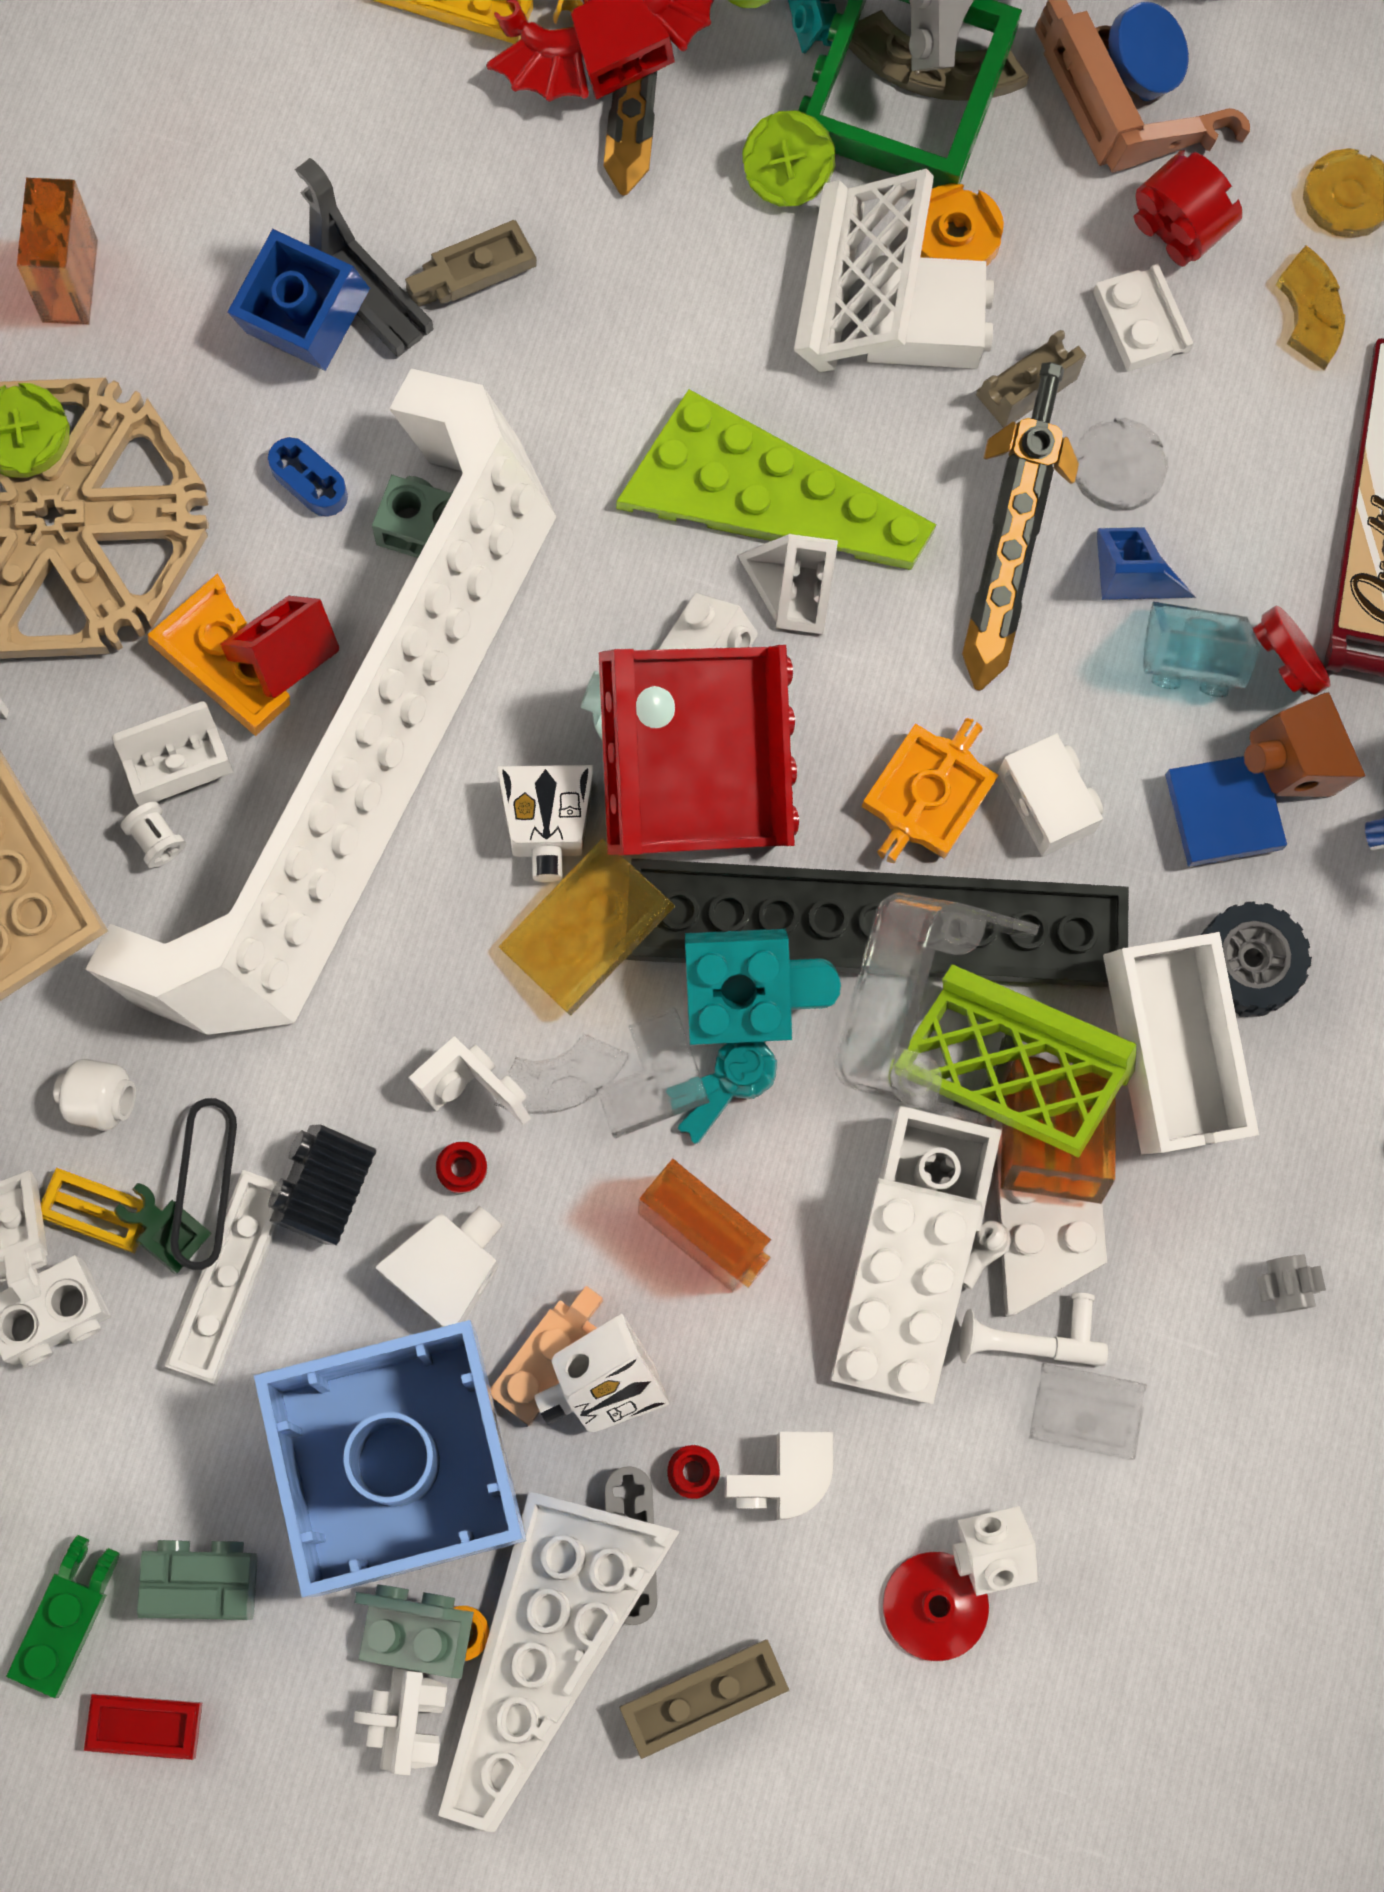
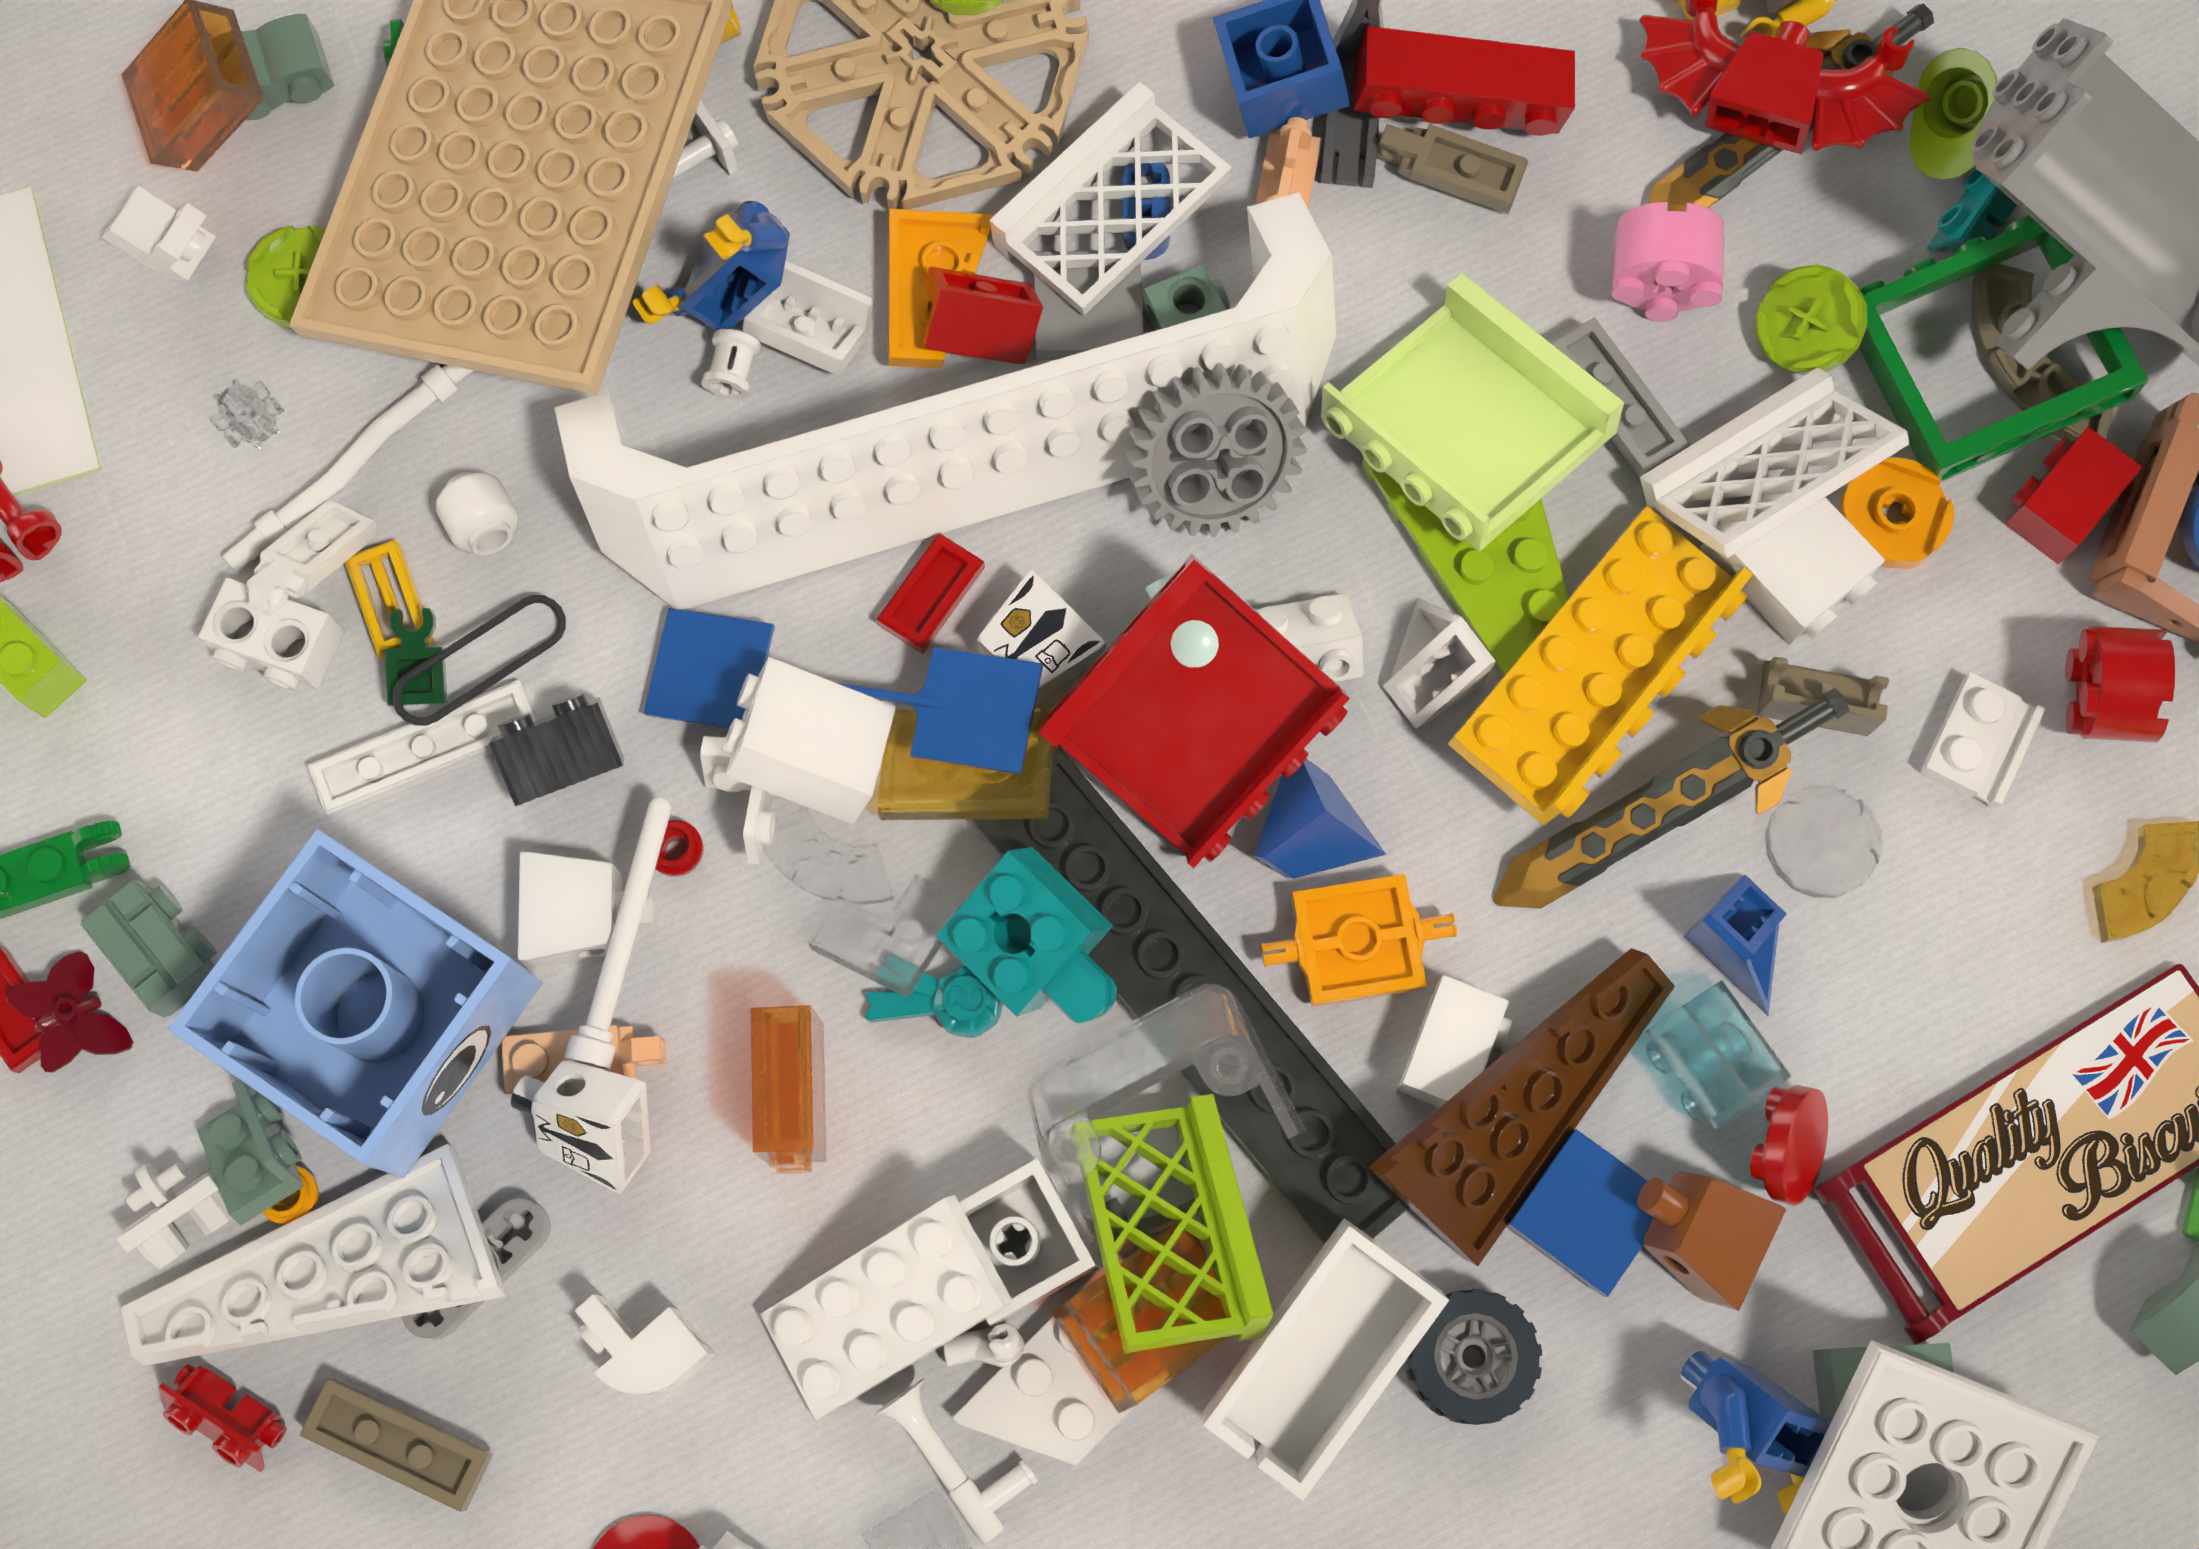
camera: 55 degrees right, 0 degrees up
(93, 771) = (732, 274): none -> blue torso
(190, 1687) = (66, 1016): none -> dark red piece
(242, 488) = (1071, 179): none -> white fence
(341, 569) = (1114, 318): none -> light grey tile
(366, 1032) = (968, 712): none -> blue hinge
(371, 368) = (1289, 162): none -> light nougat hinge
(425, 206) = (1464, 80): none -> red brick
(442, 849) = (930, 593): none -> red tile
(481, 1009) = (808, 740): none -> white brick
(532, 579) = (1216, 450): none -> light grey gear
(553, 1328) = (594, 1040): none -> white piece
(560, 1816) = (200, 1407): none -> red hinge
(655, 407) = (1474, 414): none -> yellowish green panel
(670, 200) = (1668, 259): none -> bright pink brick
(710, 1467) = (565, 1261): red plate -> none
(725, 316) = (1645, 430): none -> light grey plate
(832, 753) = (1313, 827): none -> blue slope
(895, 487) = (1599, 668): none -> yellow bracket
(1042, 122) = (2072, 495): none -> red brick
(1134, 821) = (1497, 1136): none -> reddish brown wing

